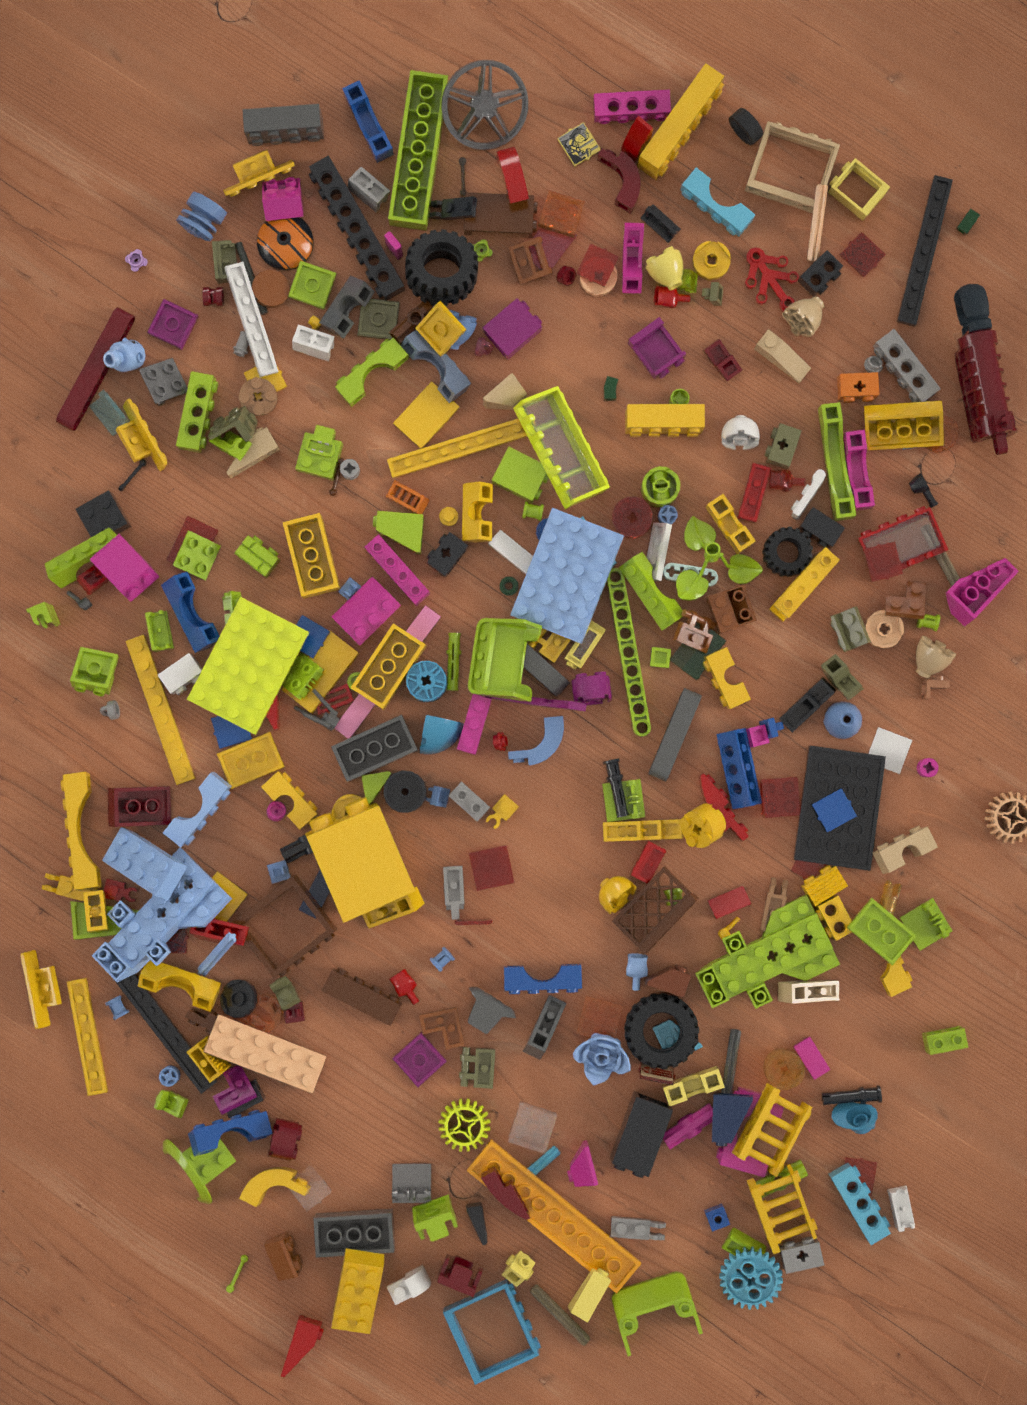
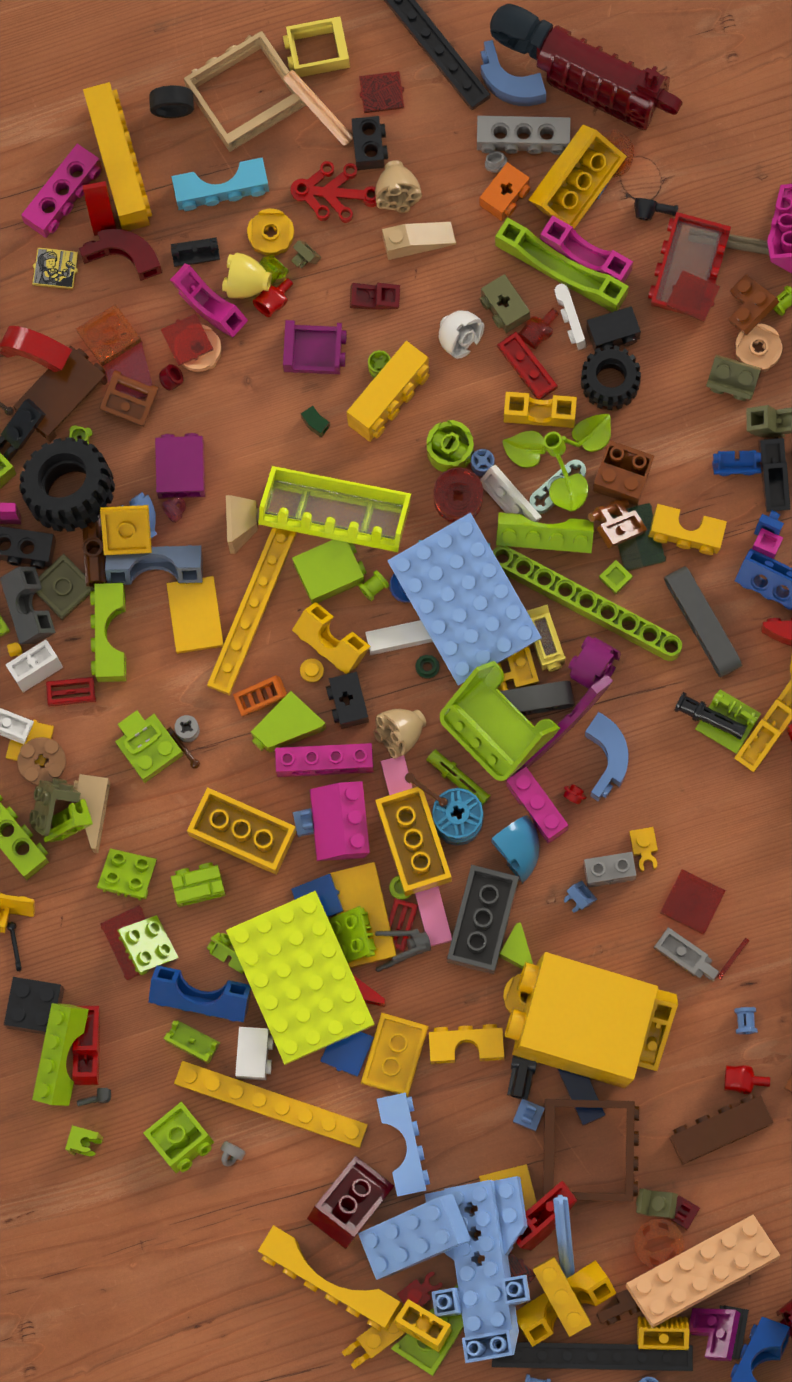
camera: 45 degrees left, 10 degrees down
(124, 567) = (104, 1020): dark pink slope -> none
(181, 975) = (561, 1296): none -> yellow arch
(230, 507) = (127, 874): none -> lime hinge
(238, 998) = (625, 1256): black tile -> none
(276, 811) = (466, 1068): dark pink tile -> none
(328, 390) = (73, 700): none -> red tile
(415, 797) = (550, 938): black wheel -> none
(423, 634) = (410, 778): none -> reddish brown hinge
(453, 601) = (399, 730): none -> tan piece
(789, 669) = (726, 464): none -> blue hinge
(804, 584) = (655, 385): yellow fence -> none
(930, 335) = (510, 88): none -> medium blue arch

